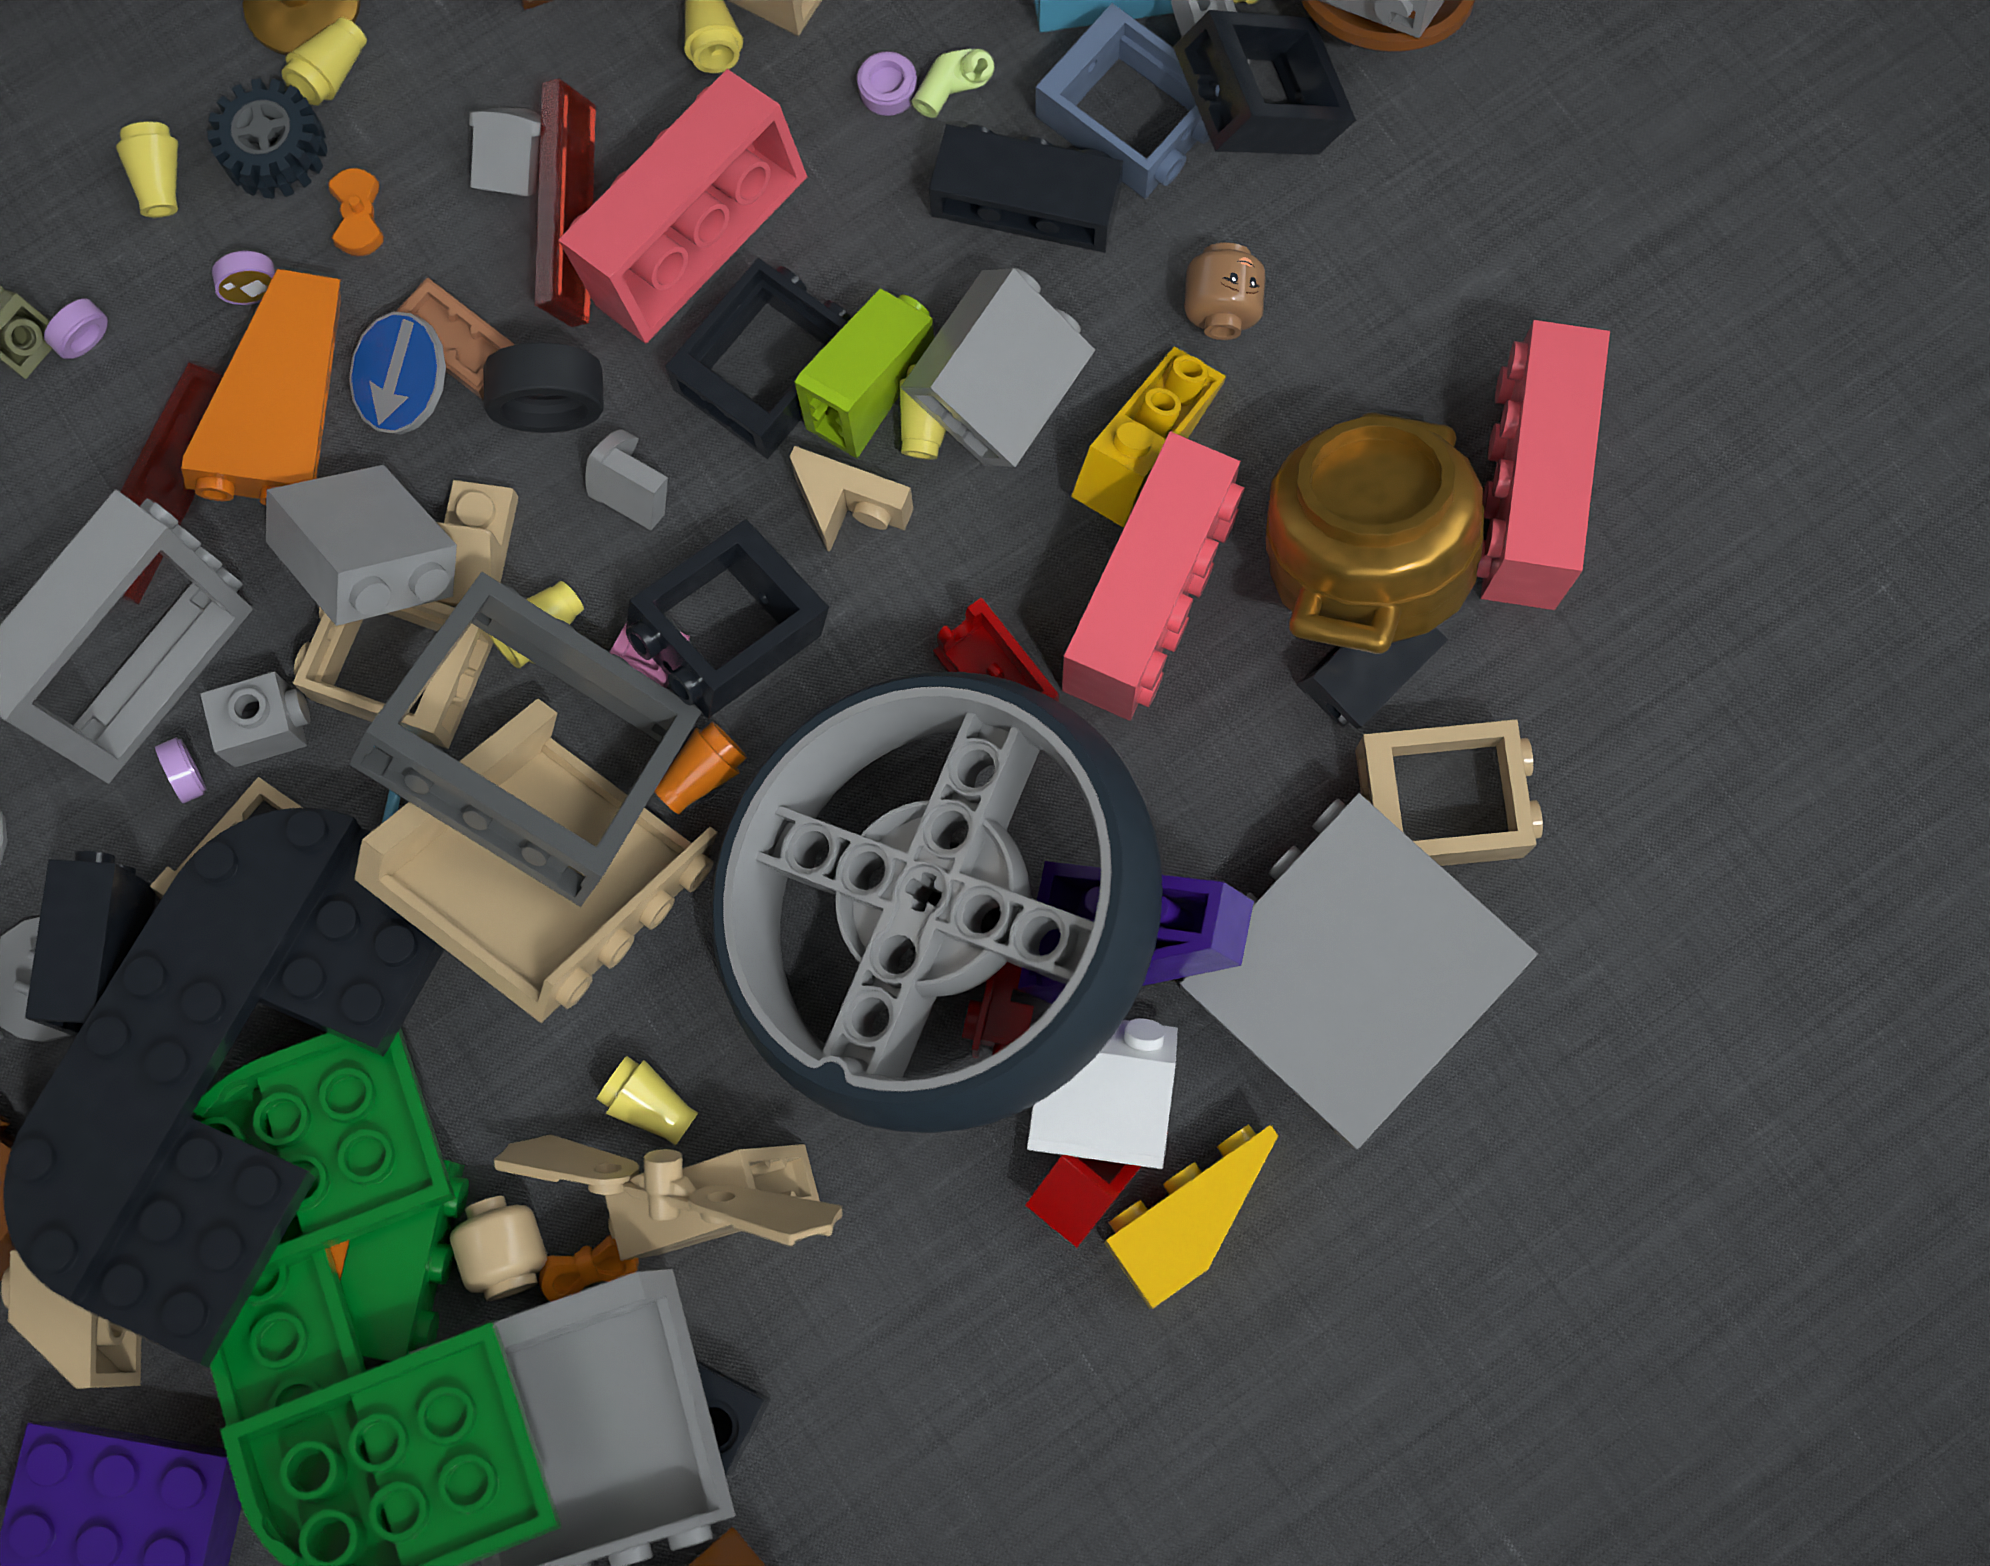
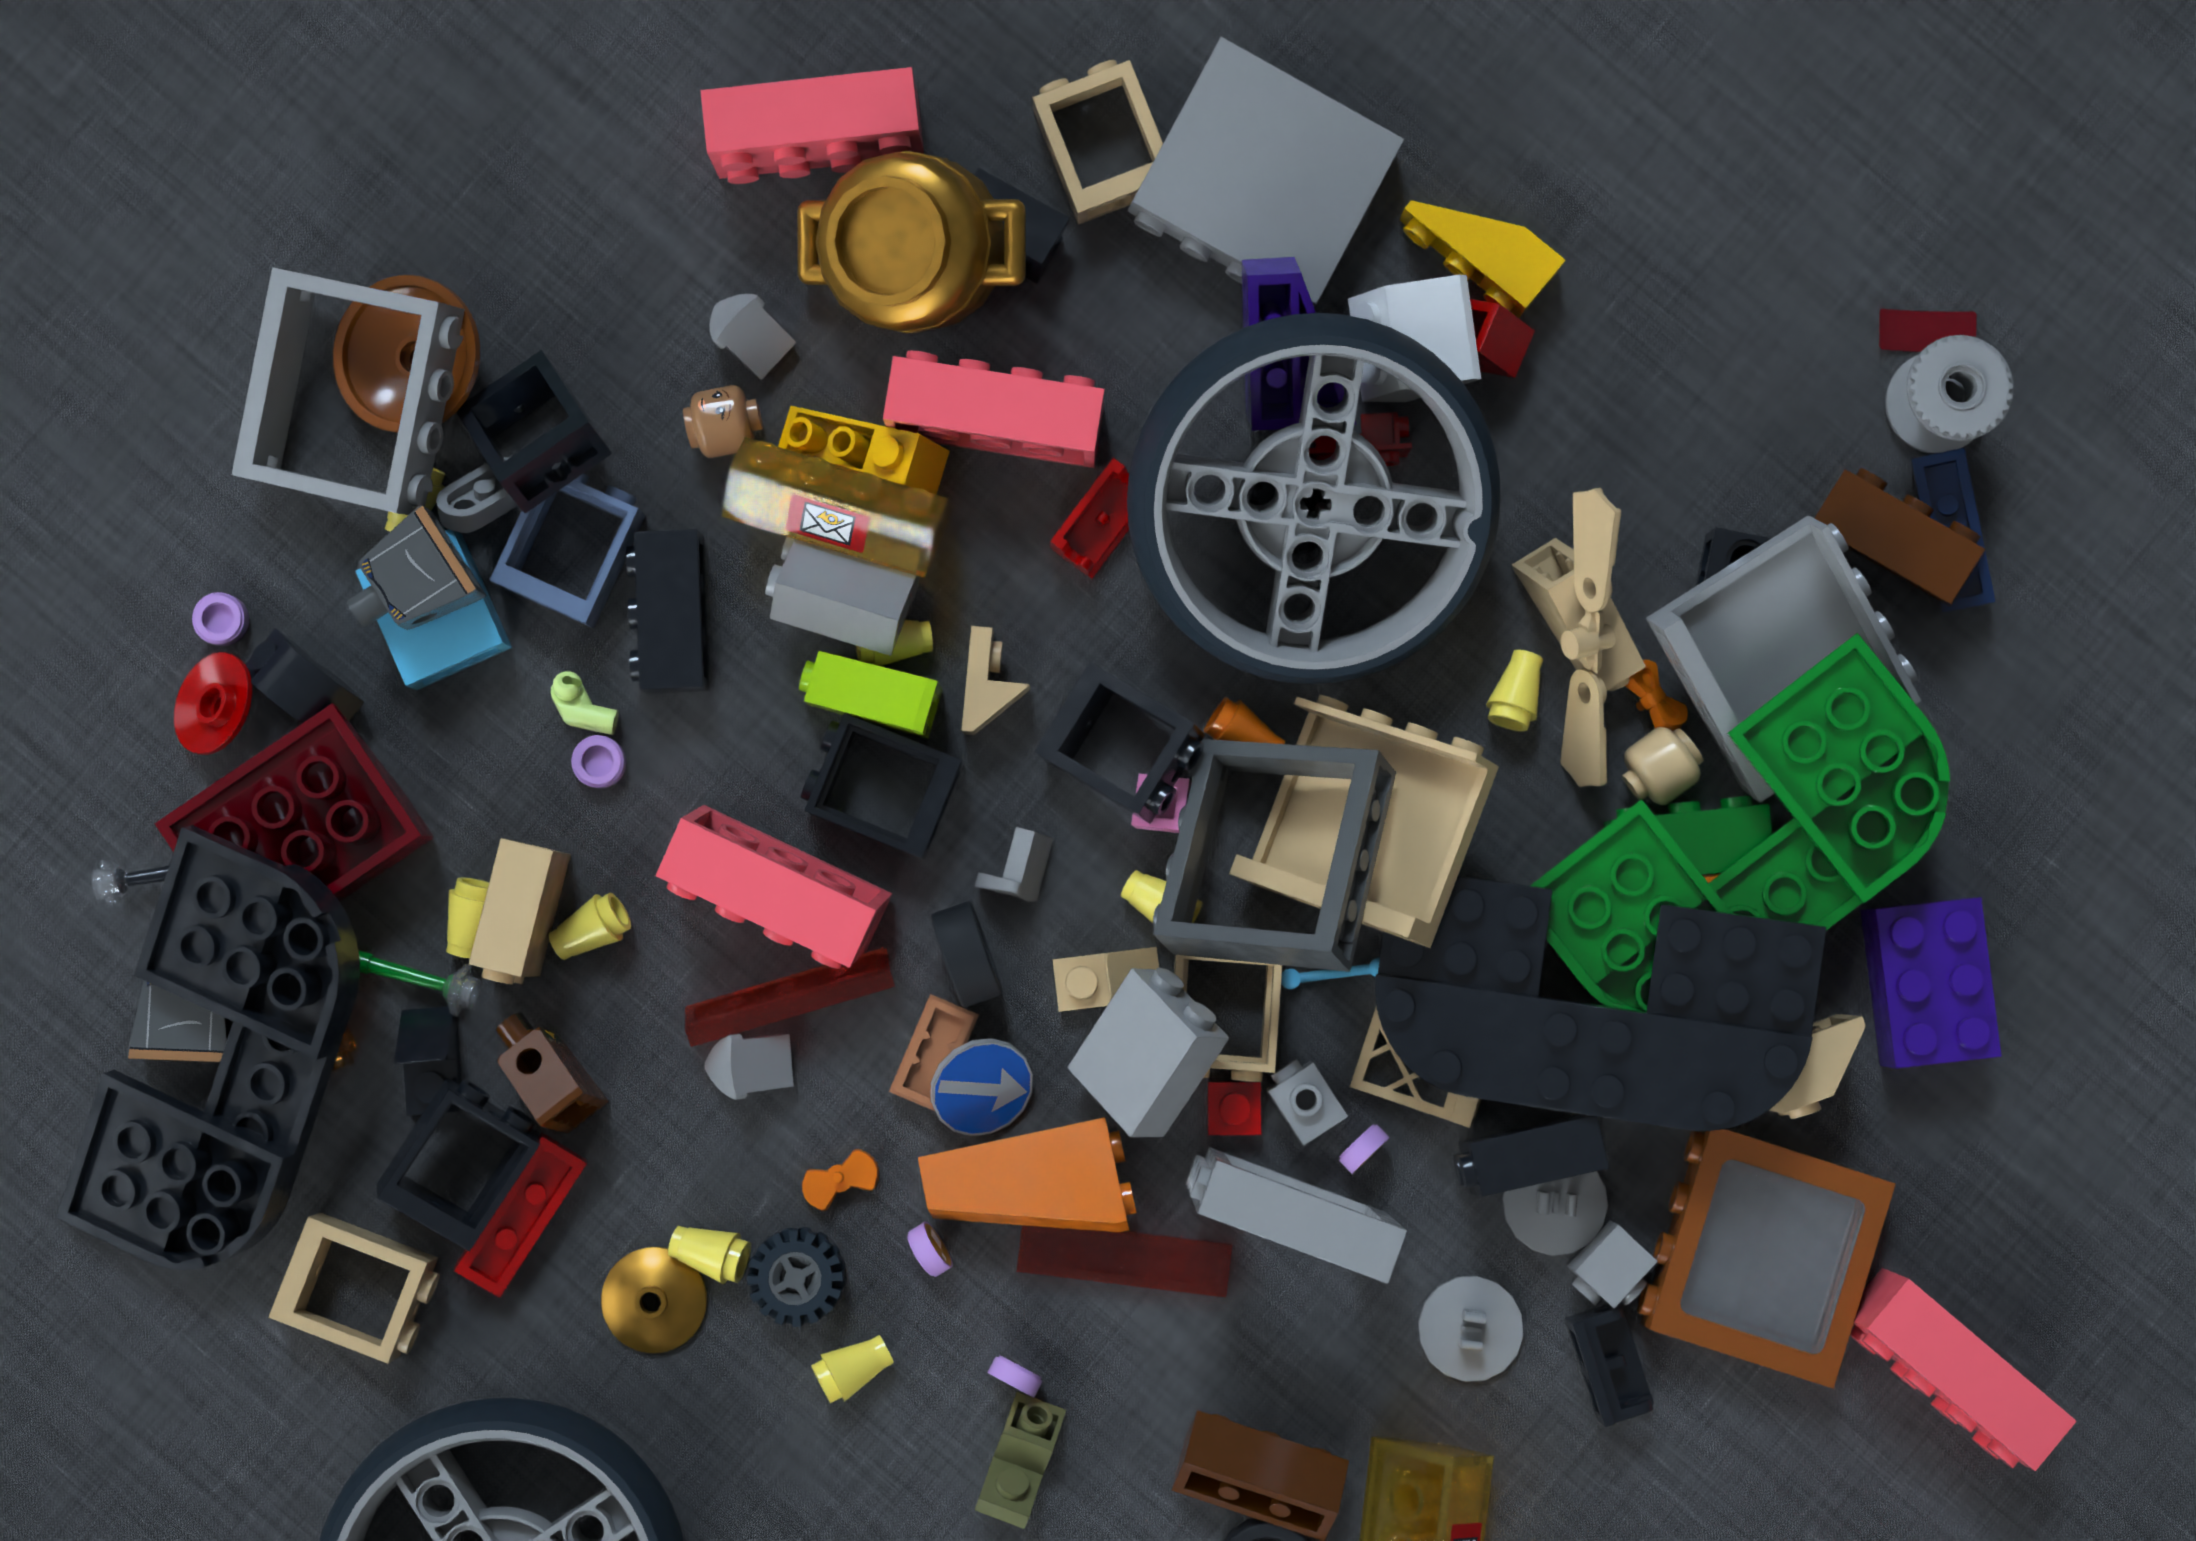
camera: 110 degrees left, 10 degrees up
(276, 641) = (1234, 1108): none -> red plate
(1088, 370) = (835, 507): none -> clear yellow slope
(1316, 347) = (749, 333): none -> light grey tile

